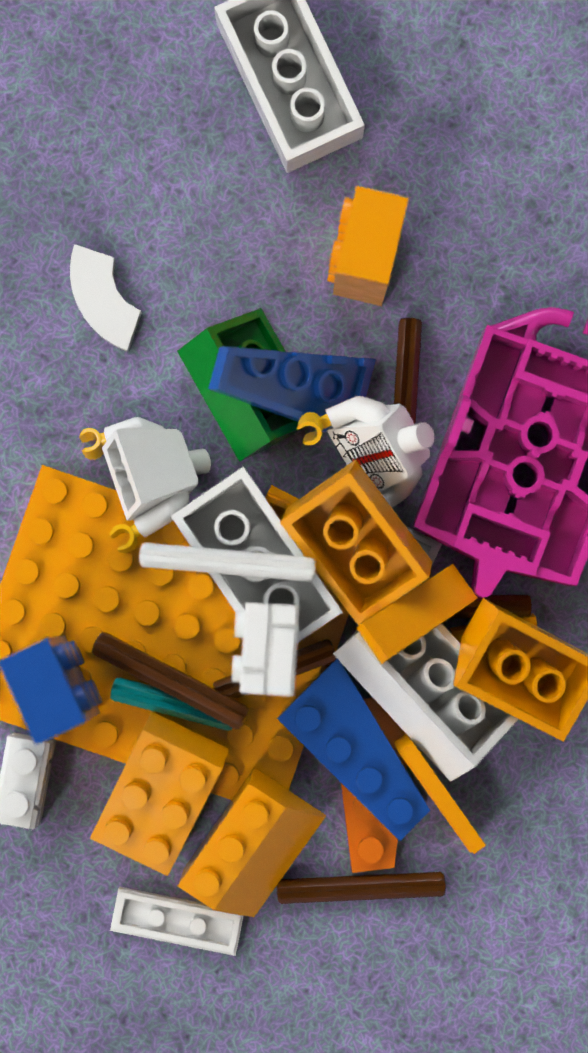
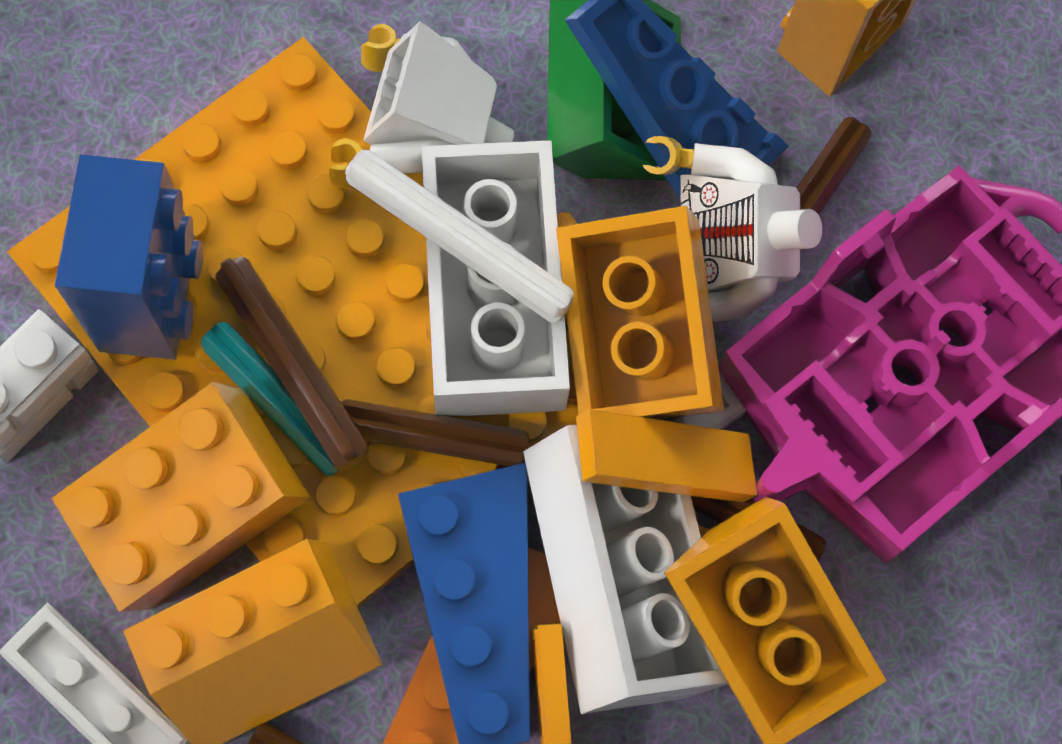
camera: 25 degrees right, 15 degrees down
(268, 648) = (443, 365): white brick -> none

